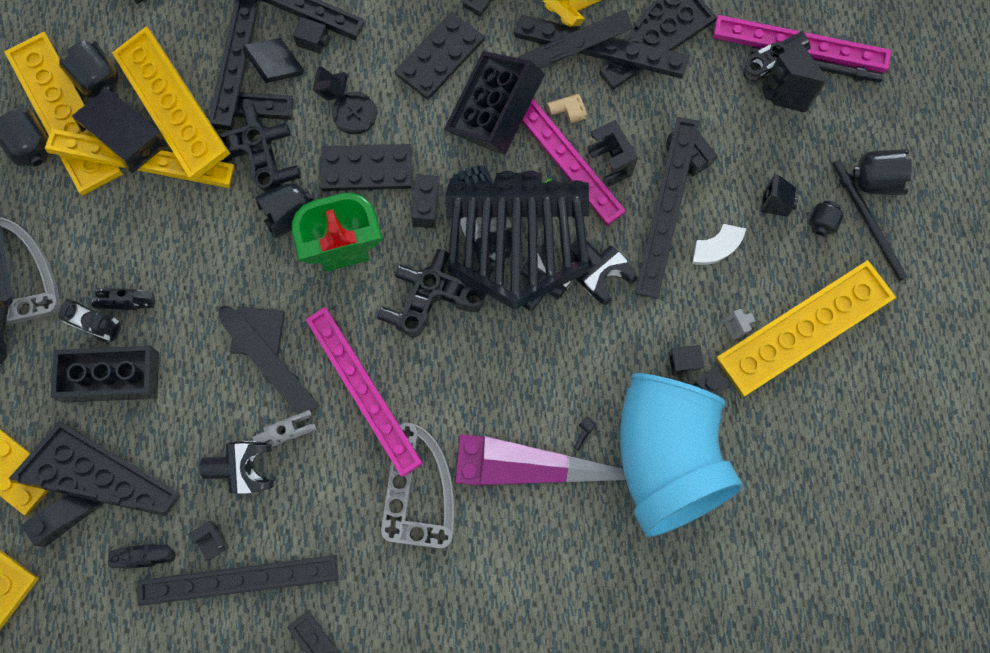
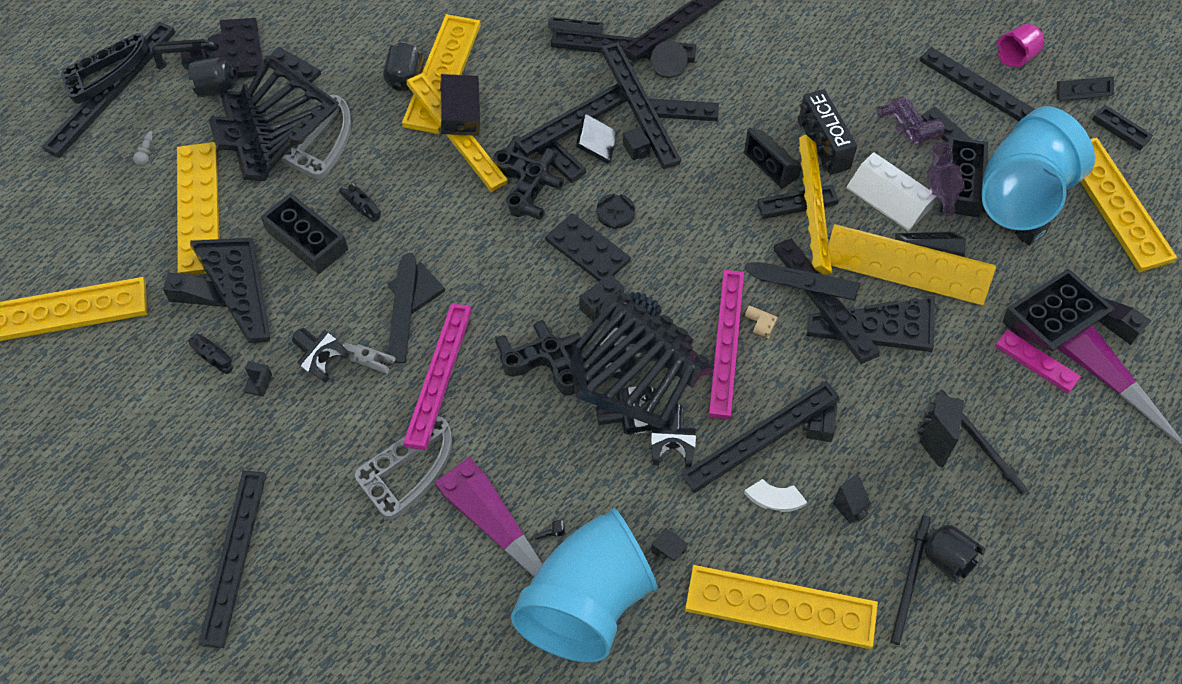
camera: 45 degrees right, 15 degrees down
(89, 69) = (481, 58): black cylinder -> none
(98, 324) = (326, 192): black connector -> none
(170, 104) = (506, 114): yellow plate -> none
(237, 580) = (249, 420): black tile -> none
(281, 207) = (508, 228): black cylinder -> none
(330, 85) = (616, 180): black panel -> none
(335, 231) = (519, 263): green piece -> none
(439, 55) = (708, 220): black plate -> none
(495, 101) = (712, 274): black slope -> none
(612, 140) = (758, 370): black panel -> none
(712, 382) = (668, 578): black brick -> none
(738, 323) = (734, 558): light grey tile -> none
(764, 58) = (971, 406): black connector -> none
(822, 47) = (985, 419): dark pink plate -> none
(826, 218) = (875, 546): black head -> none

